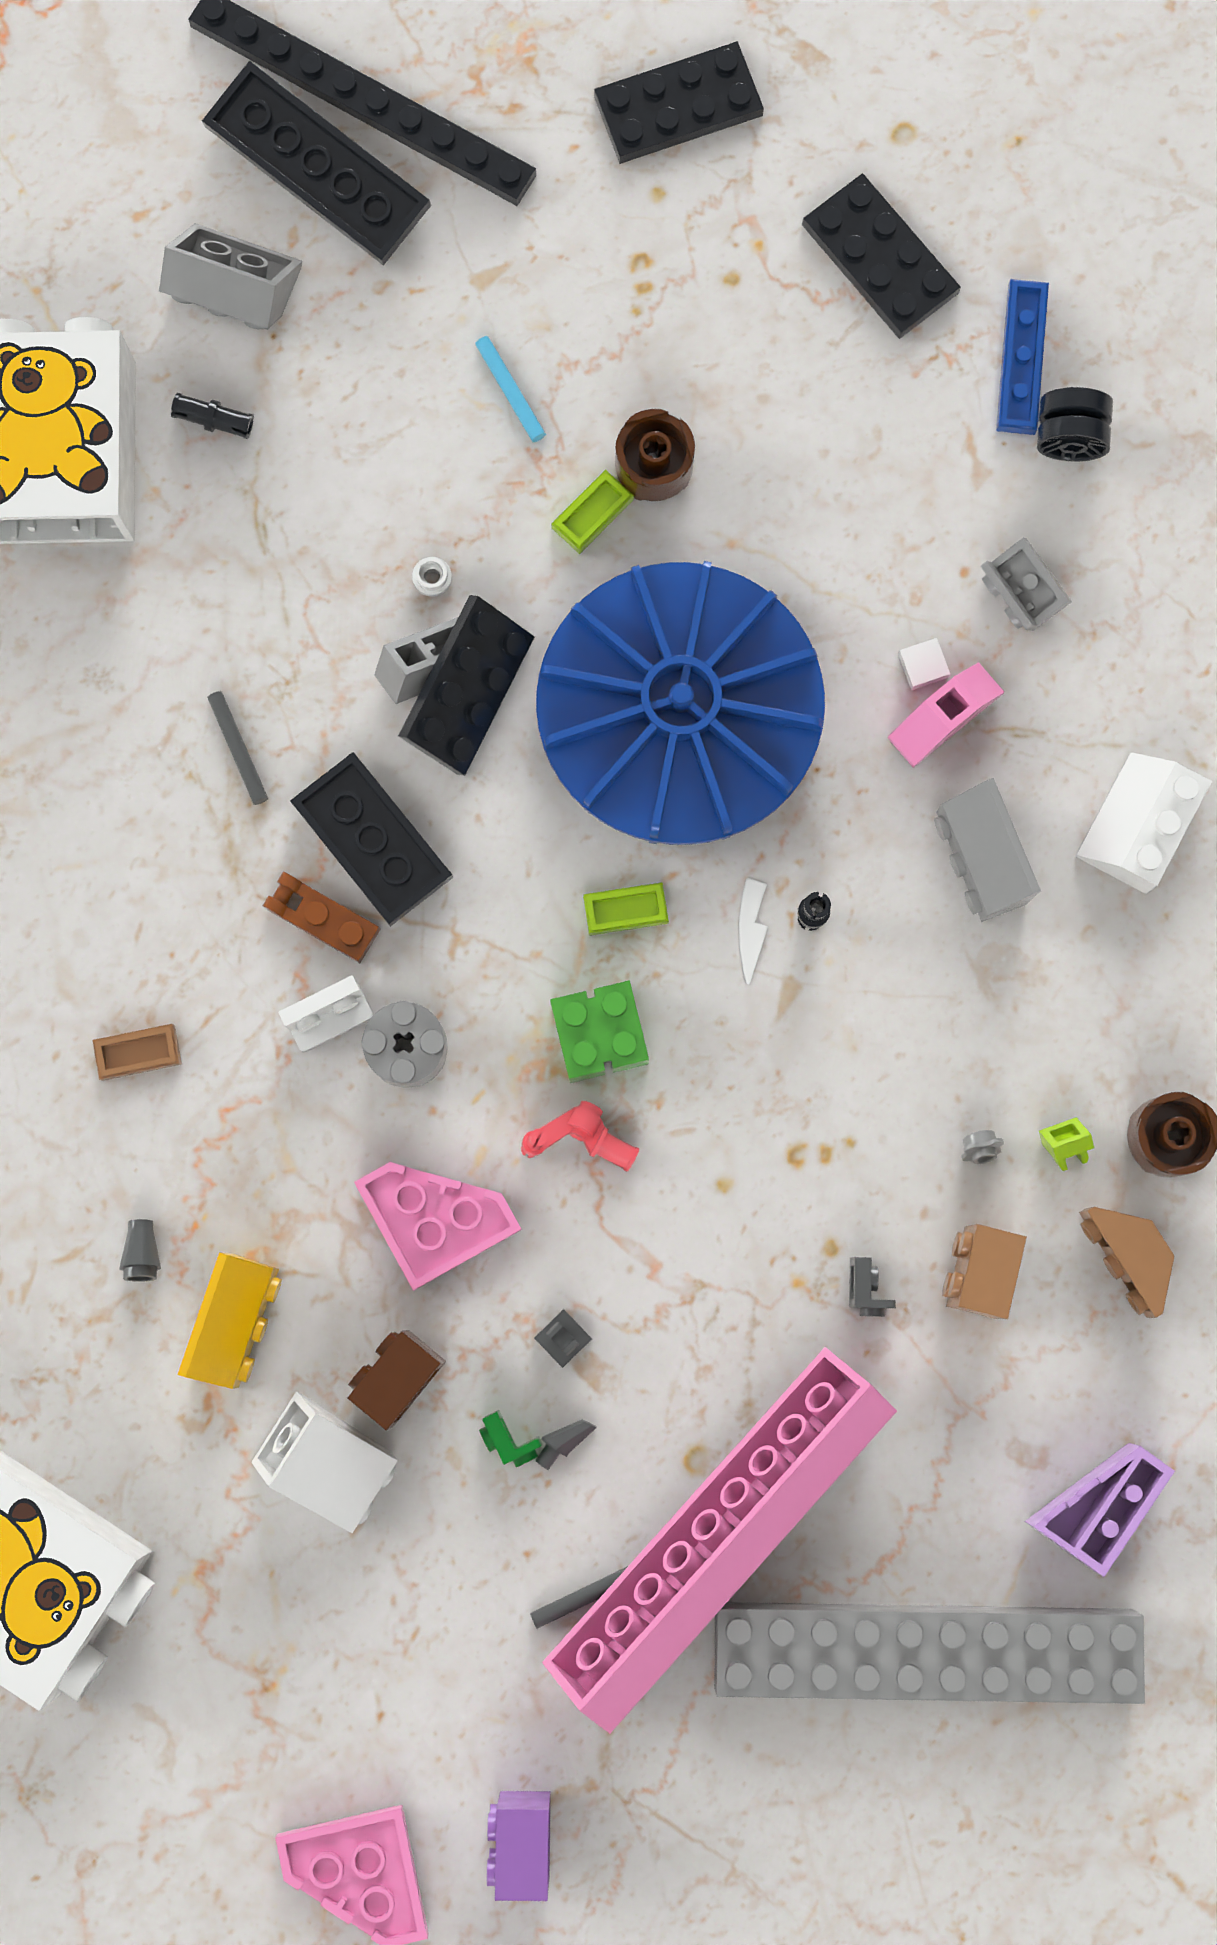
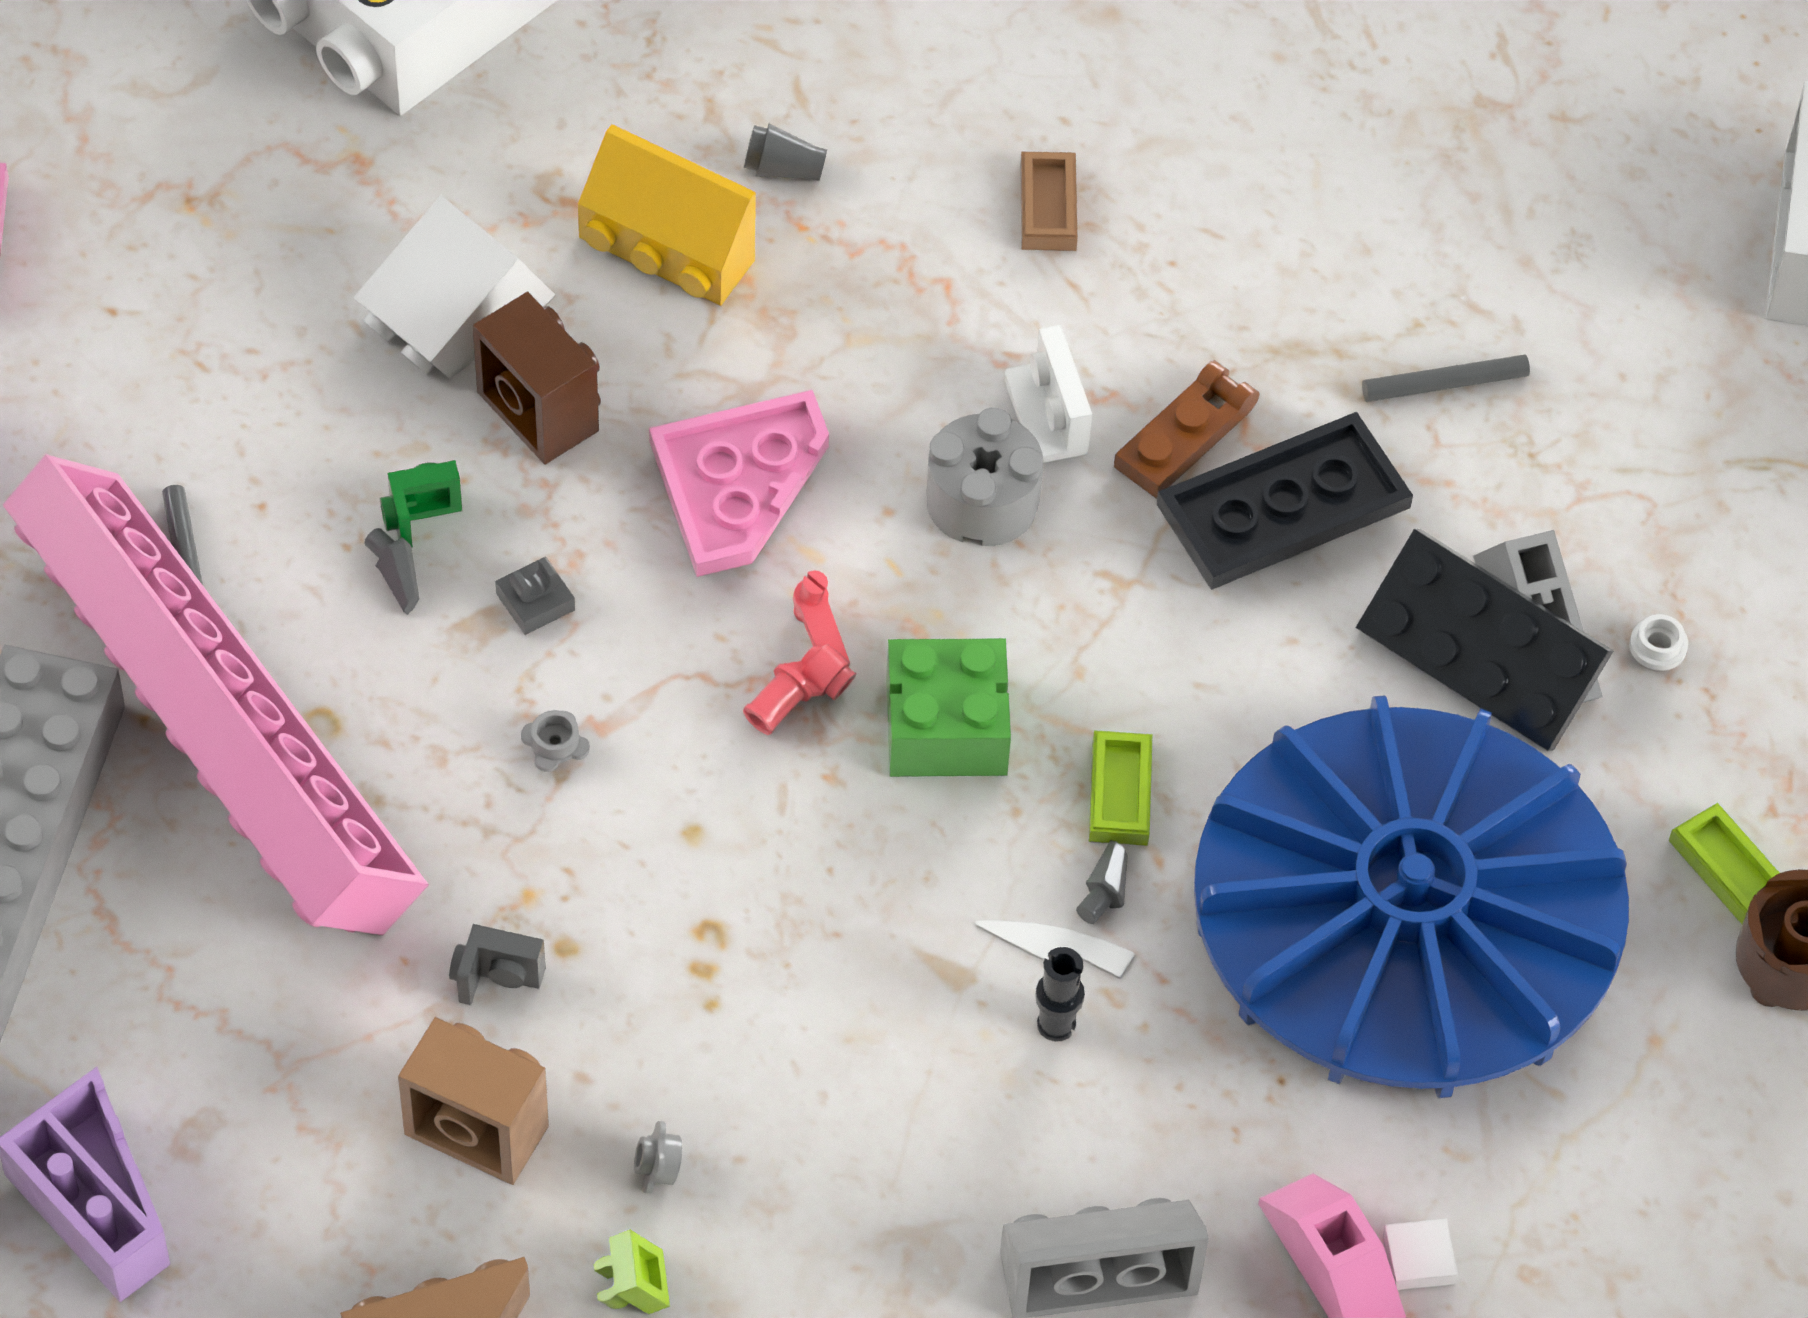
camera: 100 degrees right, 25 degrees down
(667, 1292) = (551, 726): none -> light grey plate
(702, 903) = (1105, 884): none -> dark grey bar

